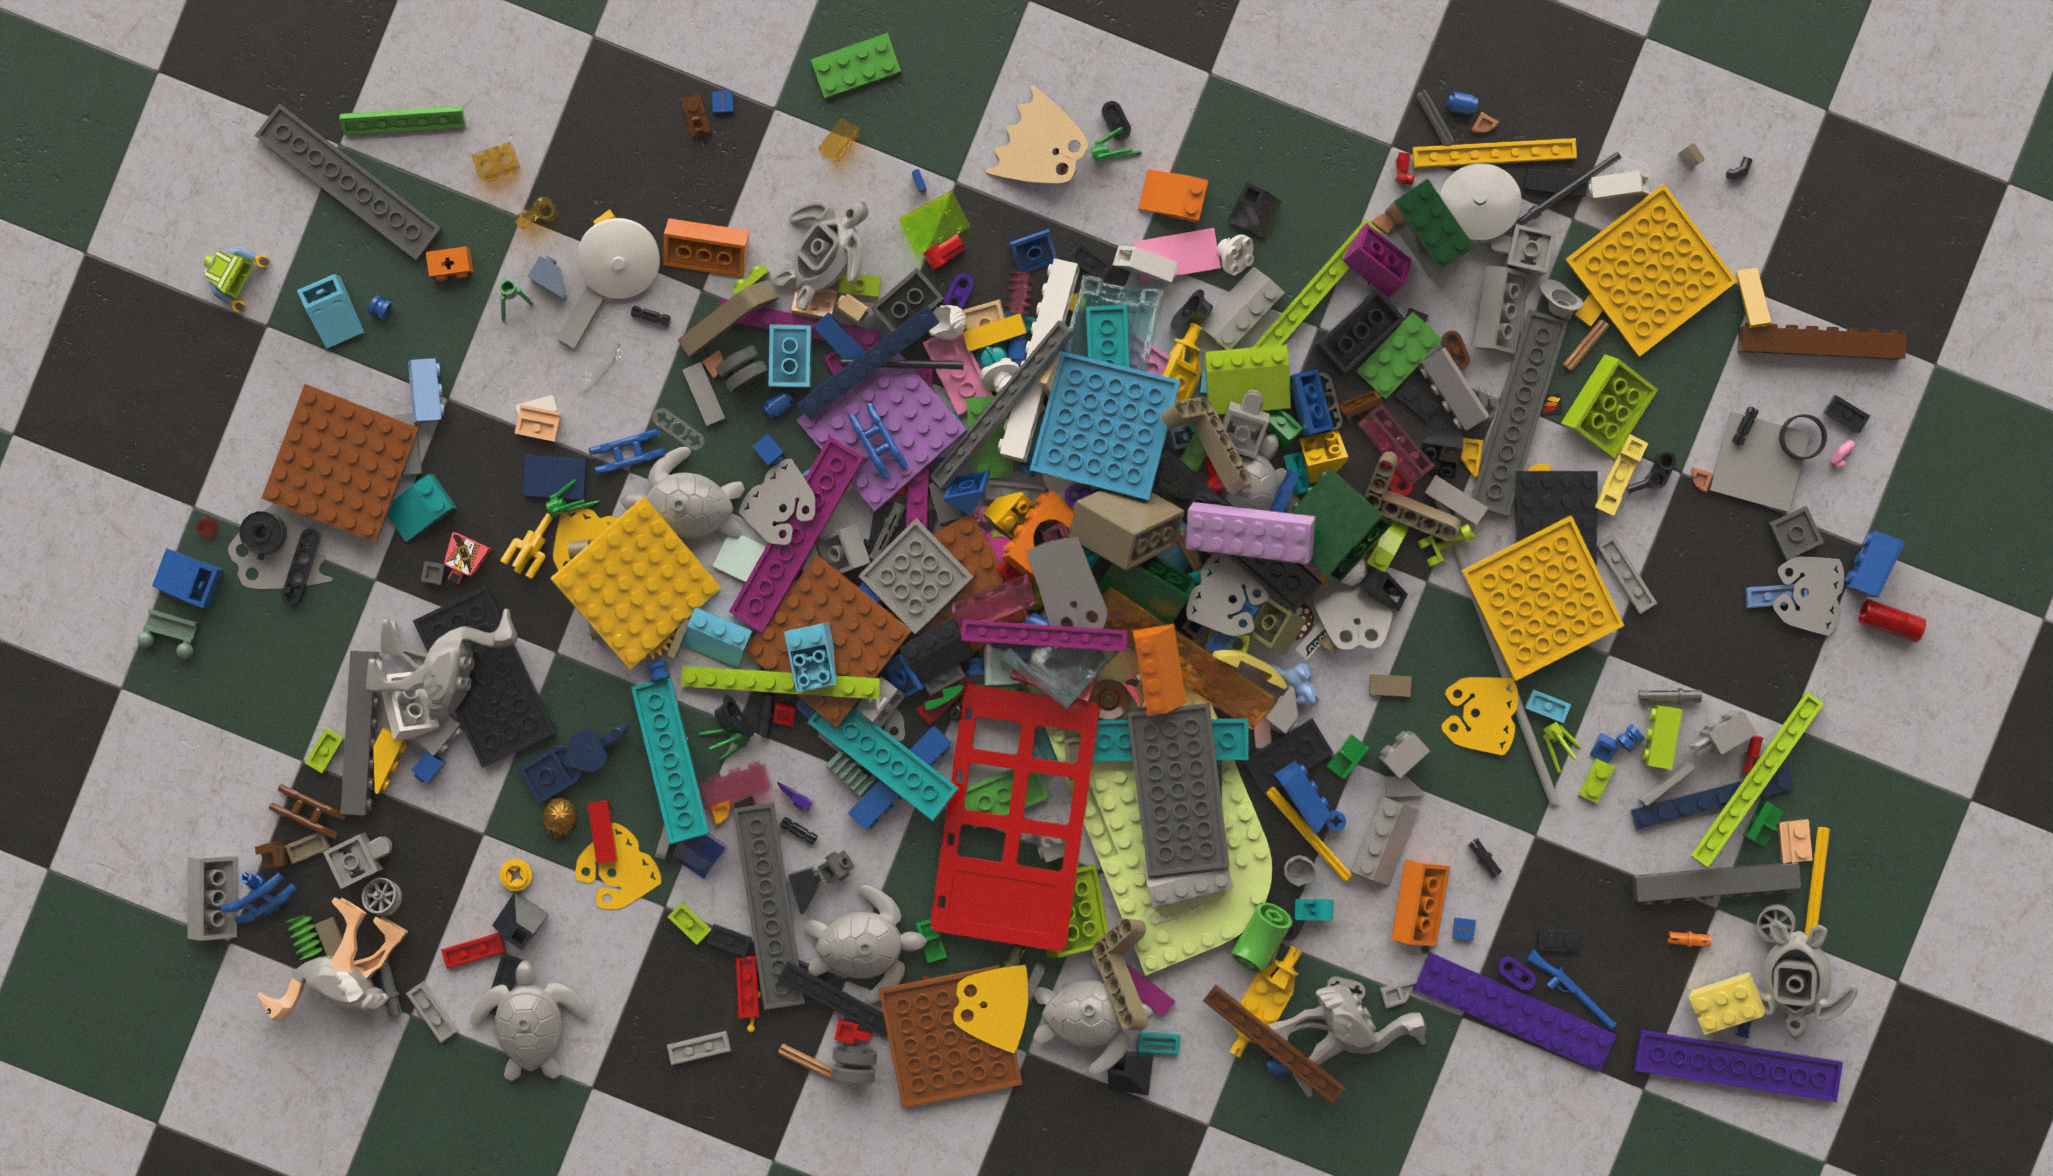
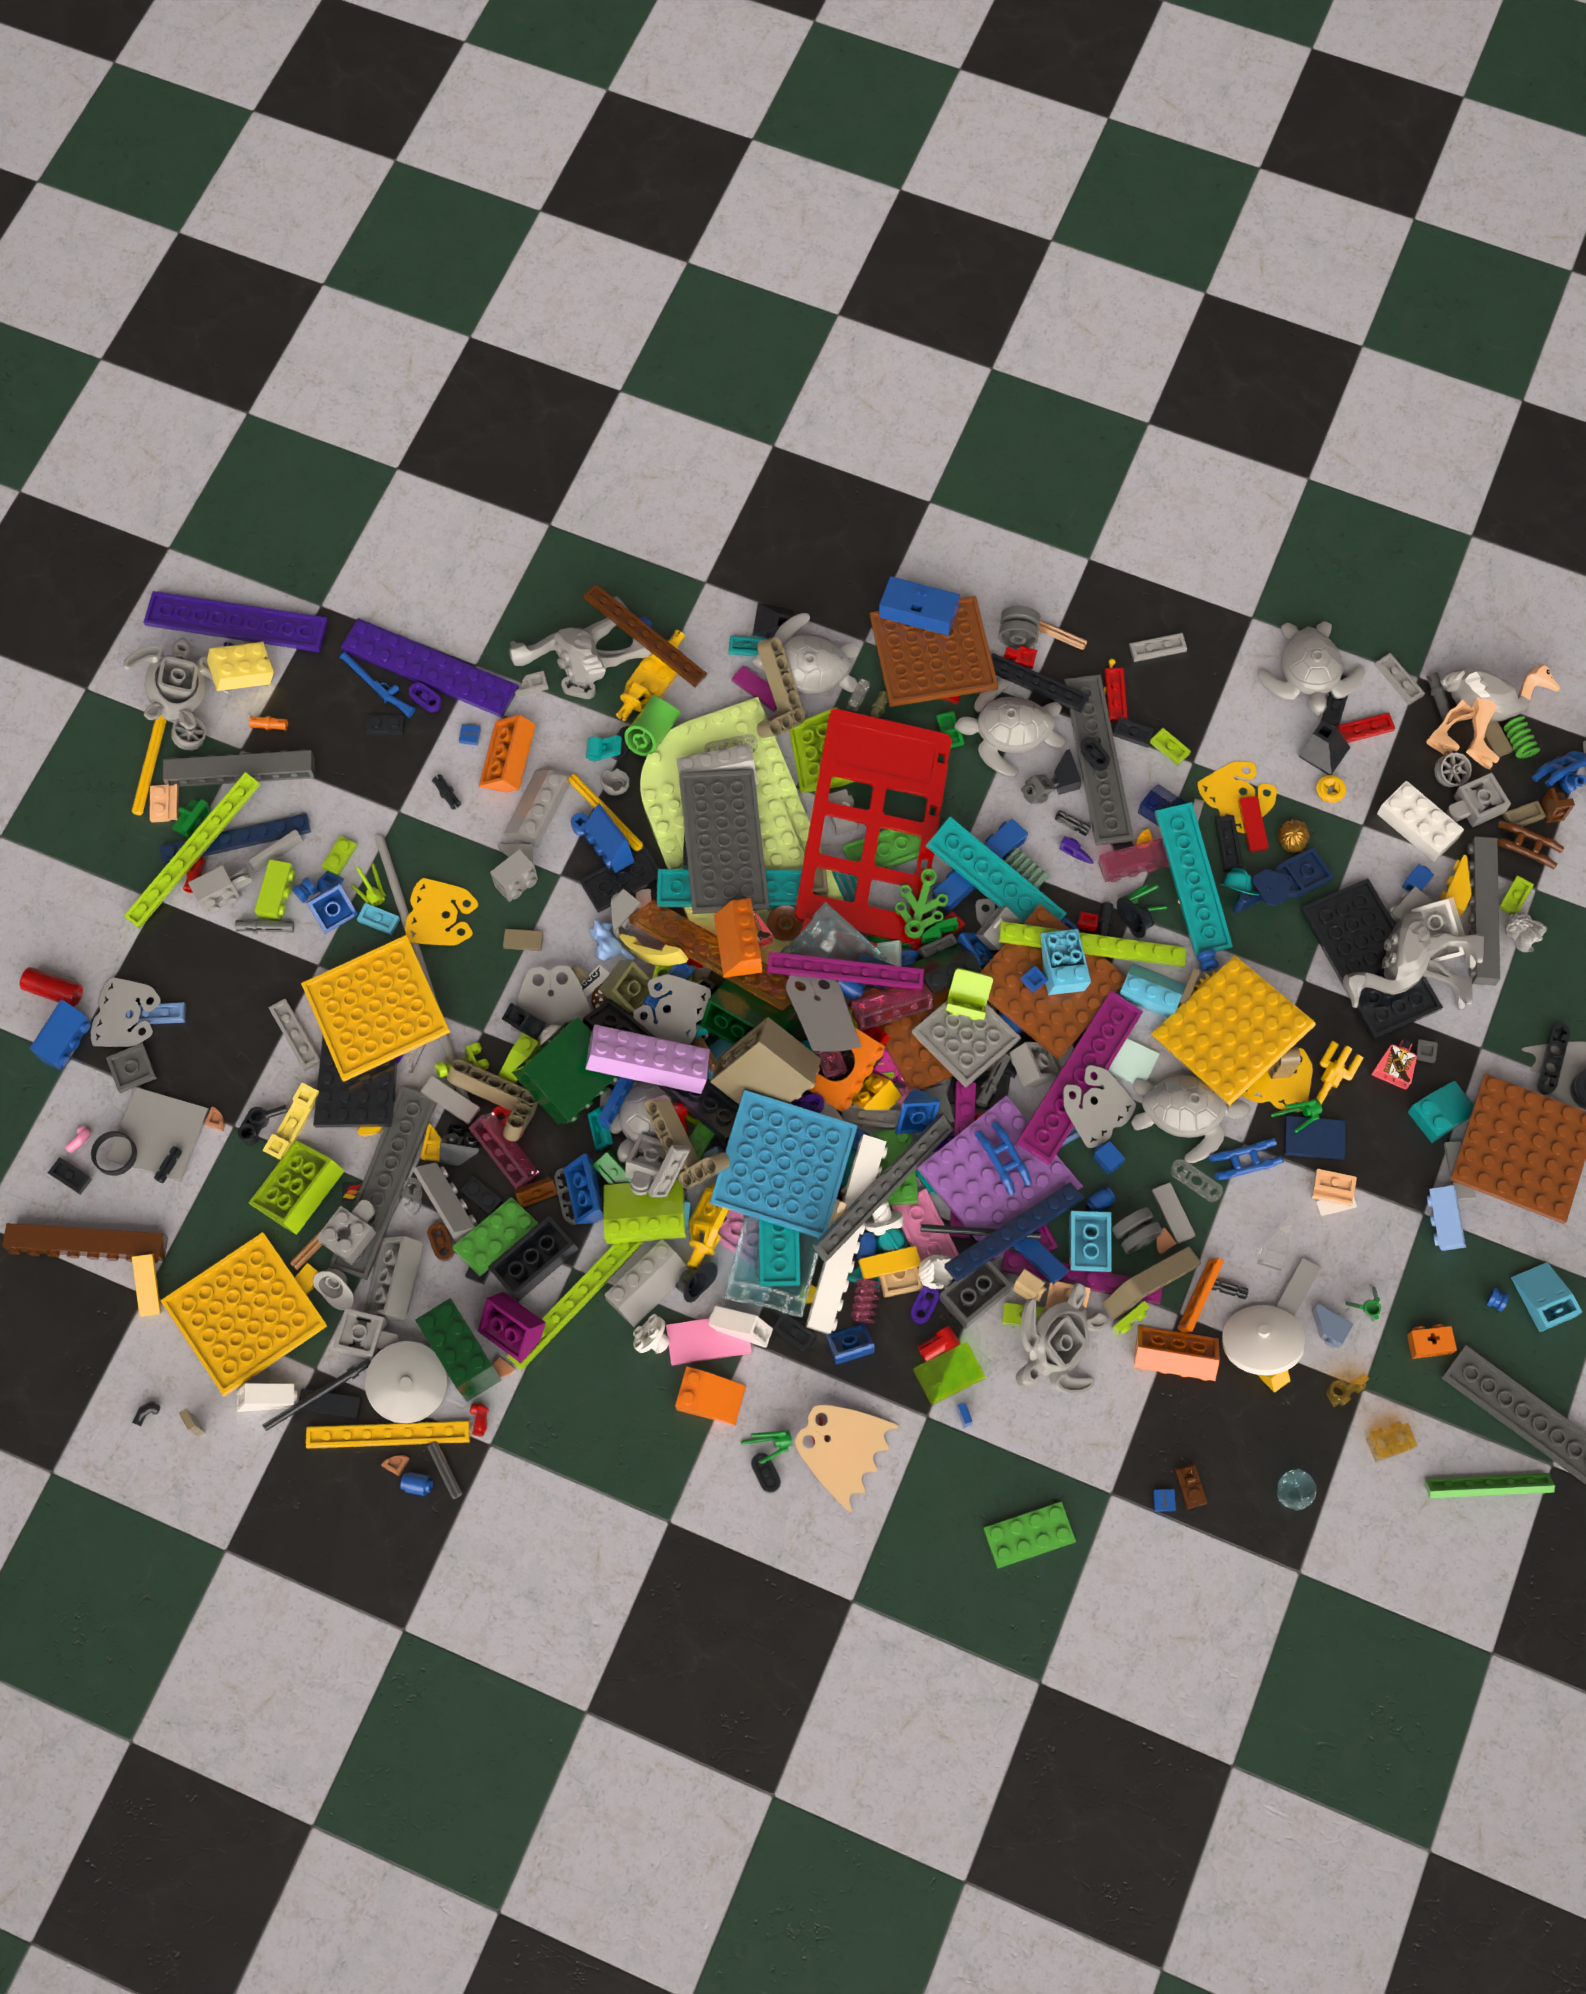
camera: 175 degrees left, 20 degrees down
(319, 707) = (1524, 931): none -> light grey hair
(421, 835) = (1420, 821): none -> white brick
(589, 110) = (1296, 1490): none -> clear light blue piece
(620, 755) = (1240, 881): none -> teal piece
(630, 809) = (1228, 842): none -> black tile
(679, 307) = (1200, 1295): none -> orange tile
(772, 907) = (1094, 755): none -> black plate
(839, 140) = (1045, 1459): clear yellow panel -> none
(844, 635) = (1034, 979): none -> blue plate
(913, 614) = (969, 994): none -> bracket
(964, 721) = (920, 907): none -> bright green plant
(966, 1088) = (919, 605): none -> blue brick
(1006, 1010) = (883, 672): yellow piece -> none
(1223, 410) = (669, 1170): none -> light grey tile
(1255, 210) = (630, 1380): black slope -> none
(1322, 453) = (572, 1142): yellow slope -> none
(1347, 757) = (565, 877): green panel -> none
(1550, 353) = (348, 1231): none -> light grey brick
(1598, 715) = (332, 908): none -> blue slope

